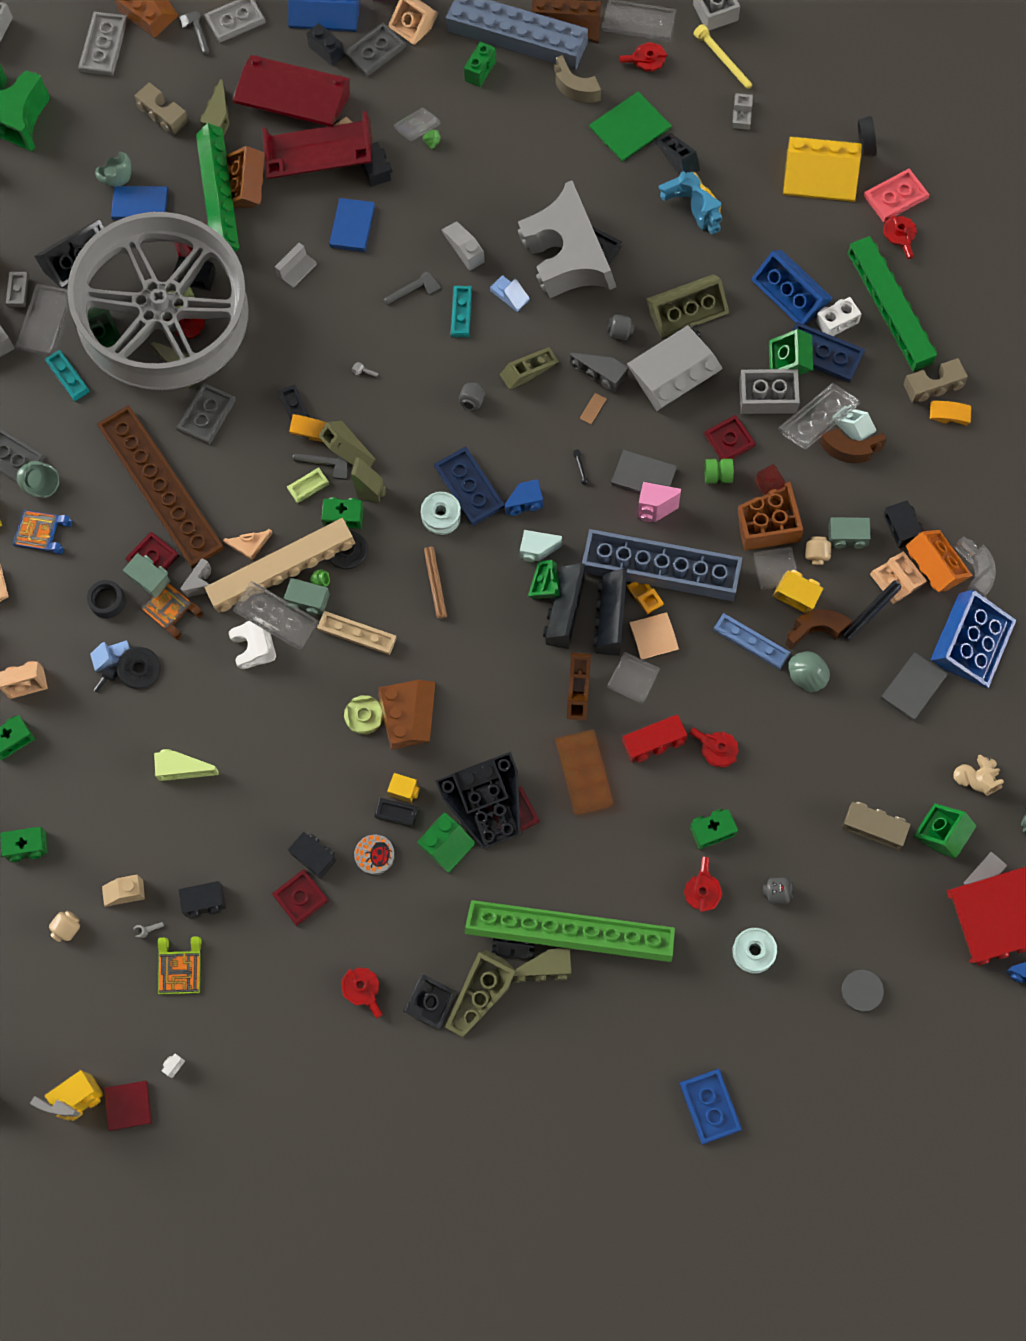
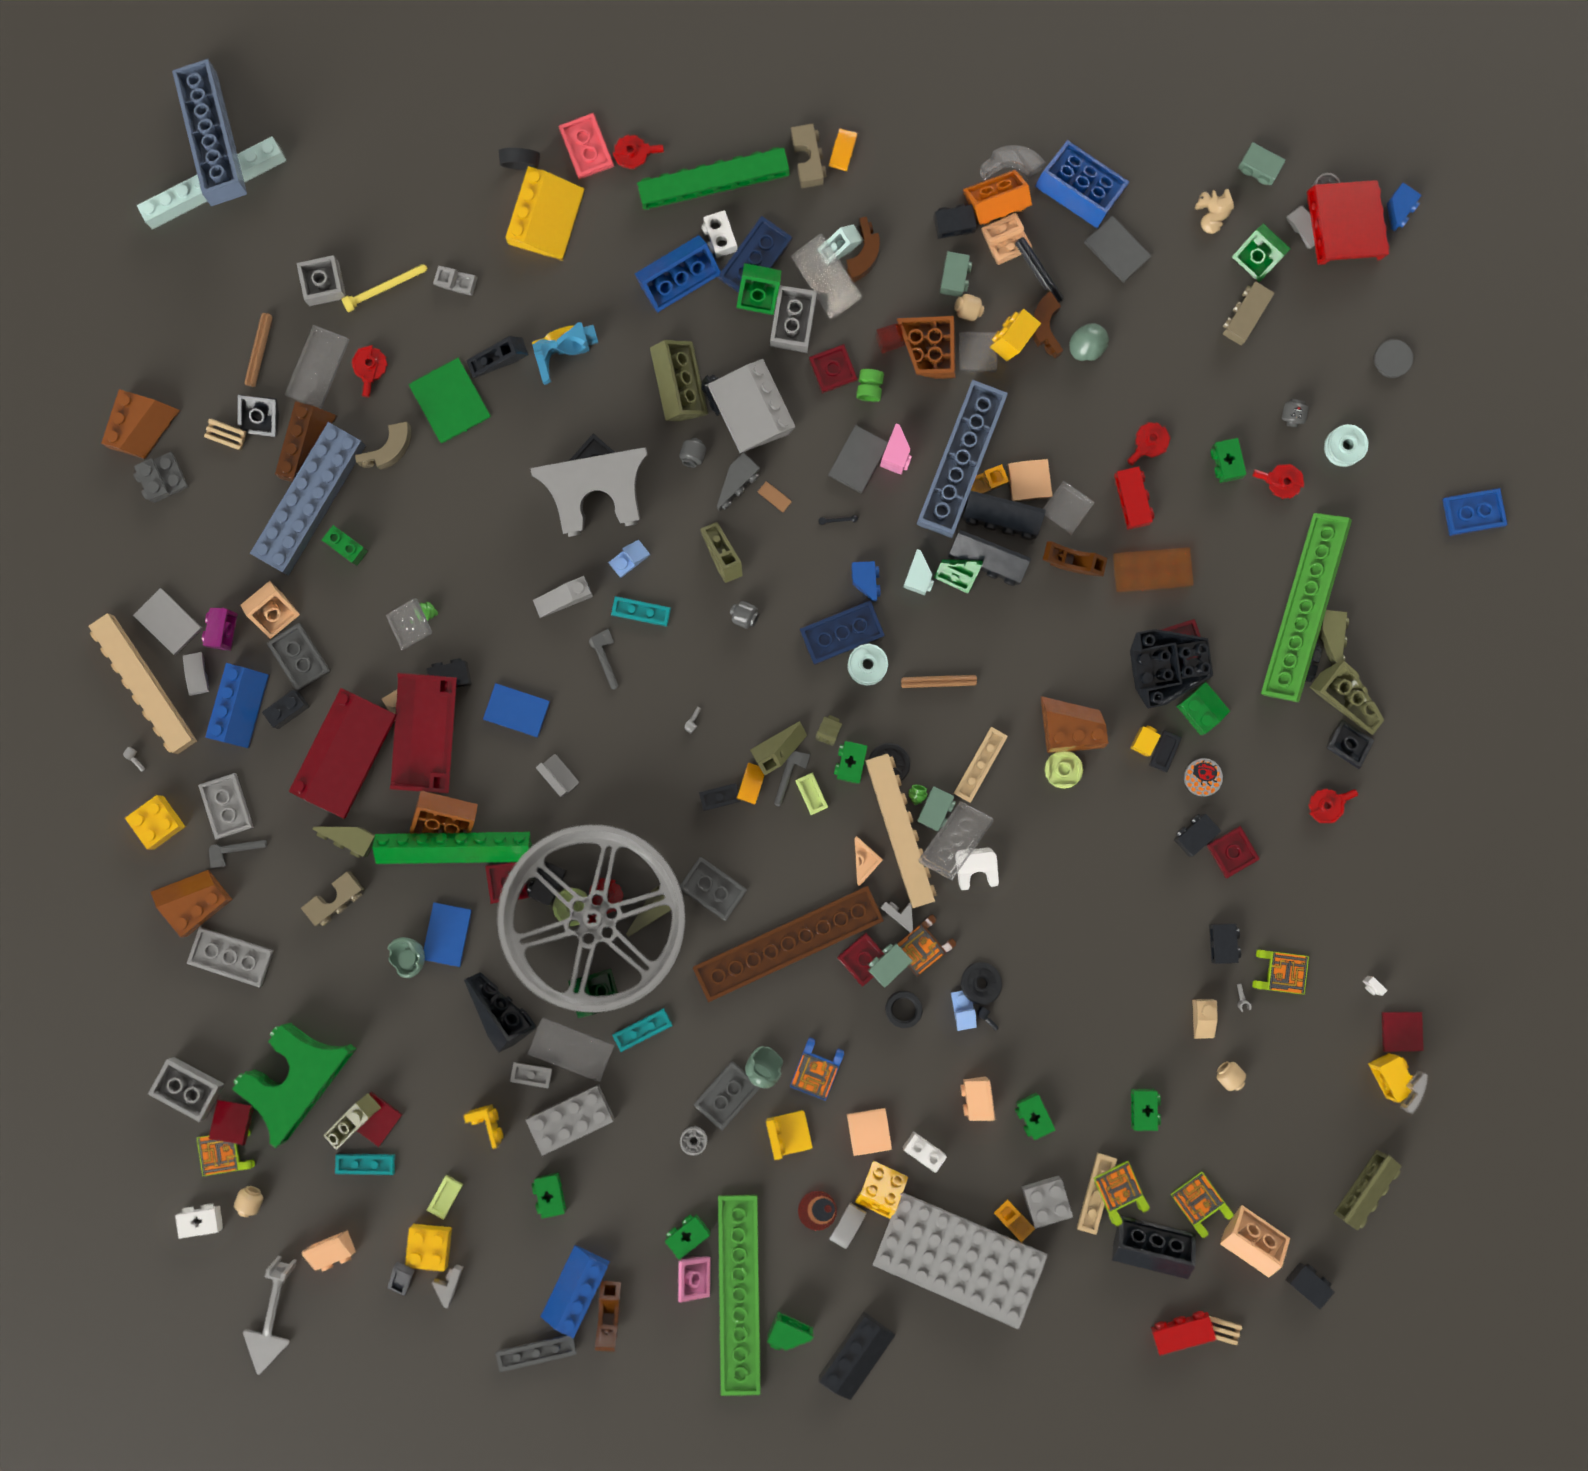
camera: 90 degrees left, 15 degrees up
(174, 765) = (1089, 955): yellowish green slope -> none
(751, 641) = (1048, 389): medium blue tile -> none

